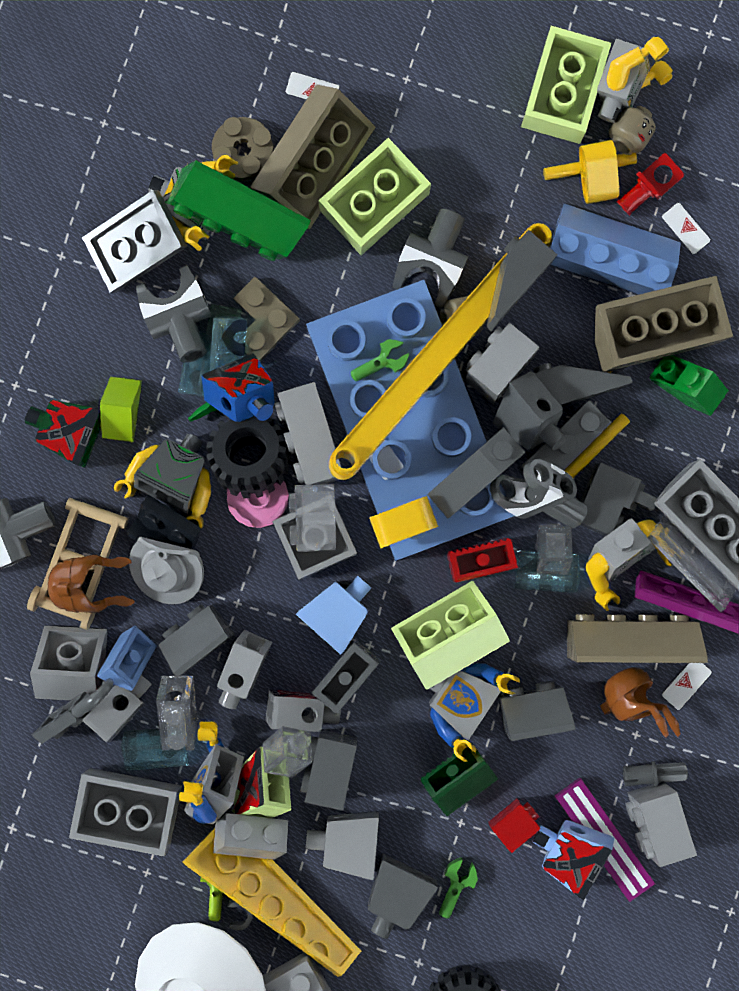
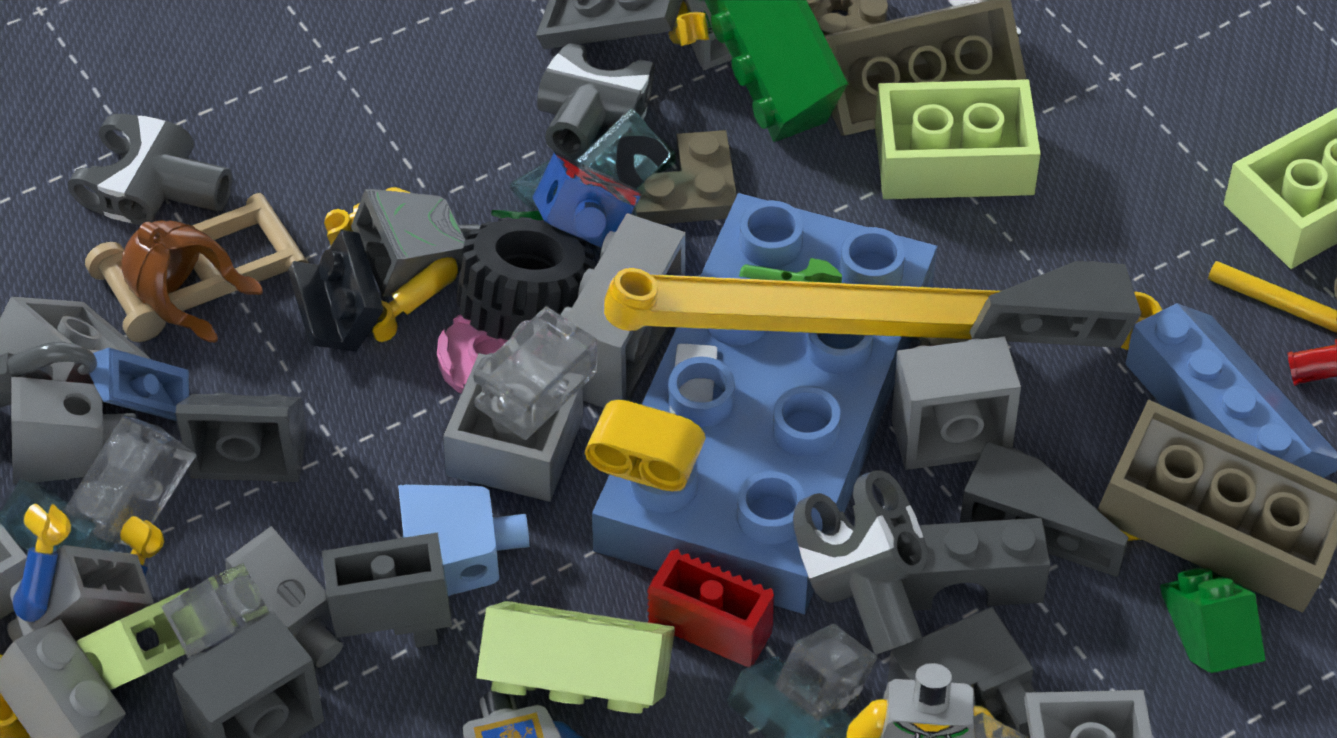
camera: 40 degrees right, 35 degrees down
(66, 429) = (342, 126): torso -> none
(120, 409) = (420, 150): lime slope -> none
(166, 570) = (292, 335): light grey hat -> none
(246, 660) = (266, 491): light grey torso -> none
(434, 256) = (981, 254): dark grey connector -> none
(476, 473) = (800, 456): dark grey slope -> none
(530, 413) = (945, 467): dark grey torso -> none
(597, 445) = (1008, 610): yellow bar -> none
(599, 171) = (1288, 299): yellow beam -> none

